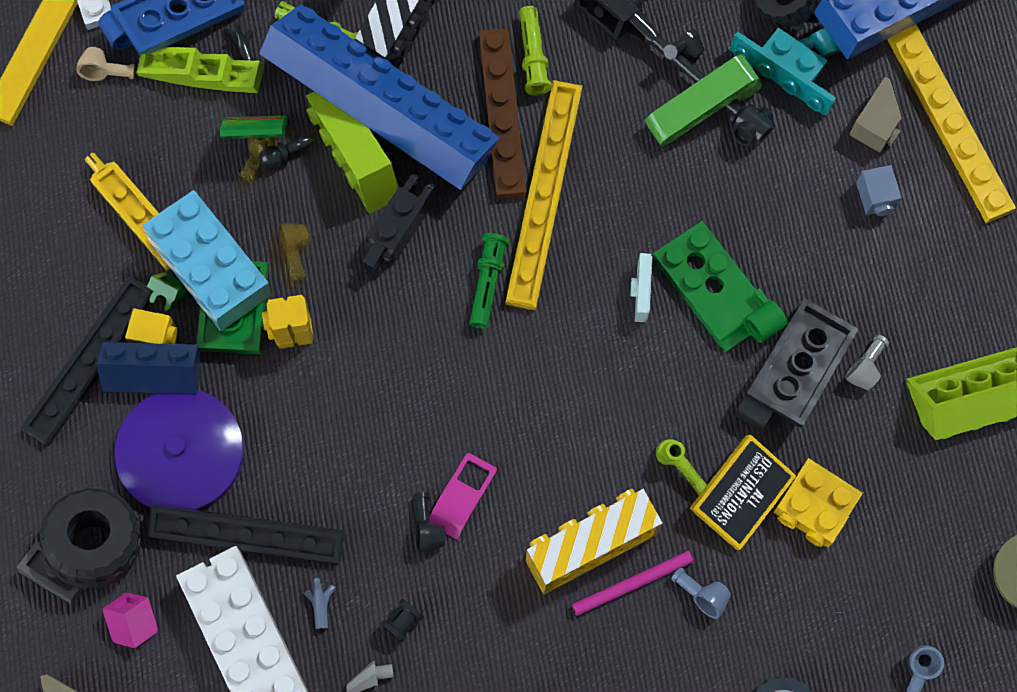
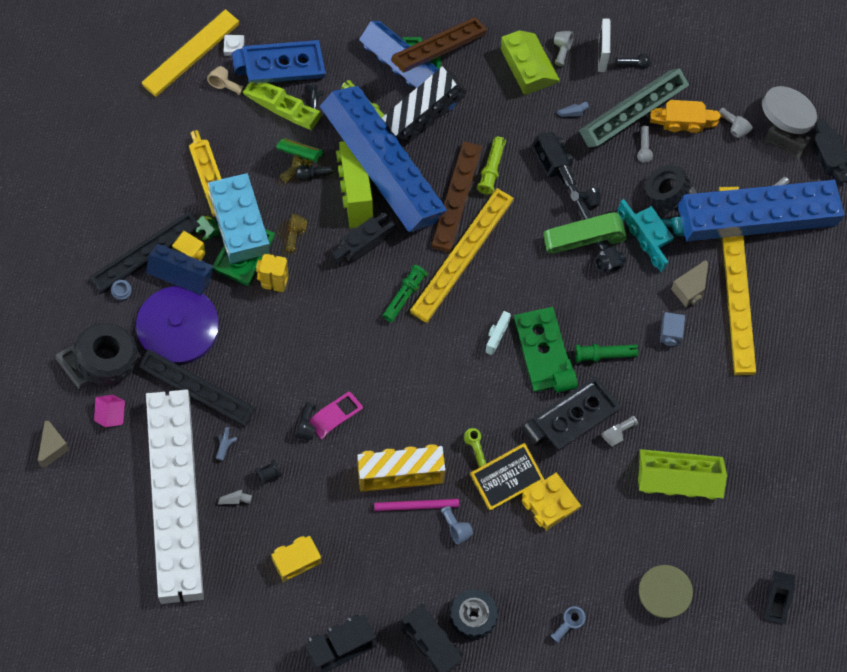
camera: 20 degrees right, 5 degrees down
(75, 430) = (121, 290): none -> sand blue plate
(790, 263) = (597, 352): none -> green pin

